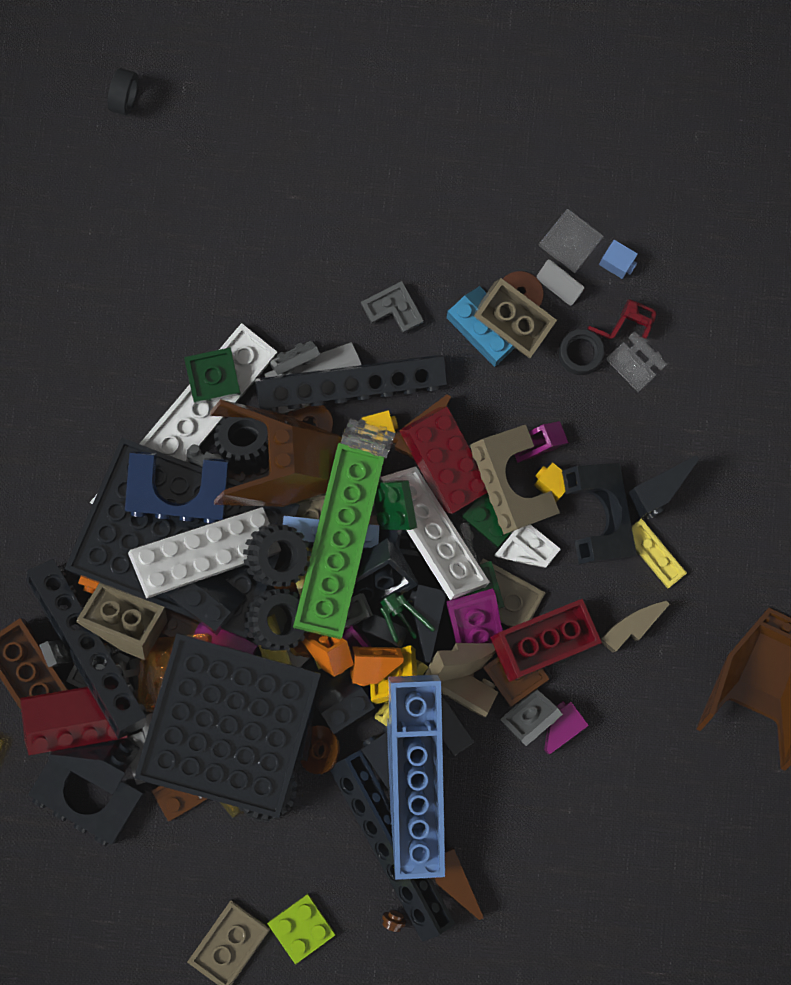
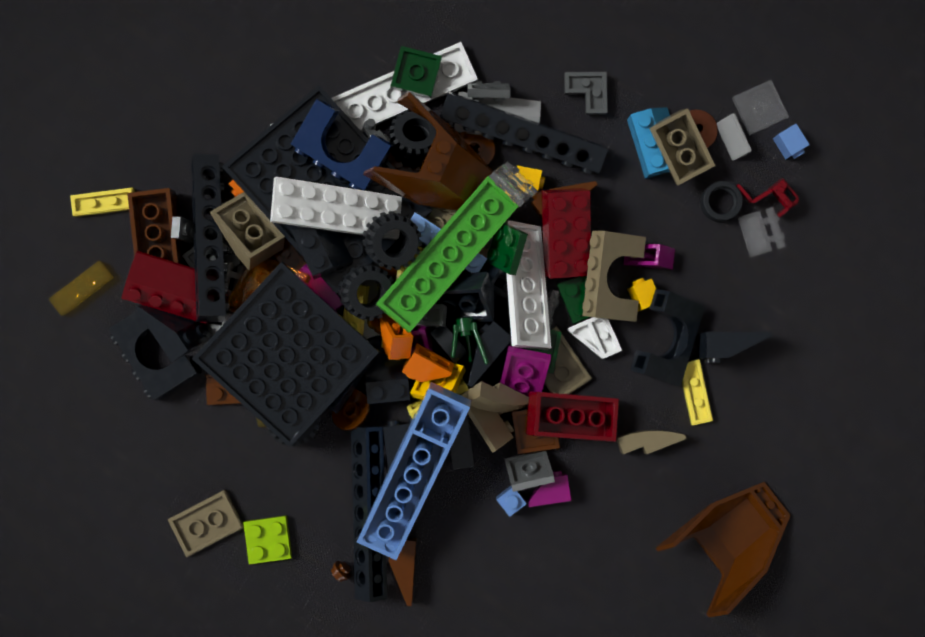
camera: 35 degrees right, 5 degrees up
(528, 757) = (510, 501): none -> medium blue brick

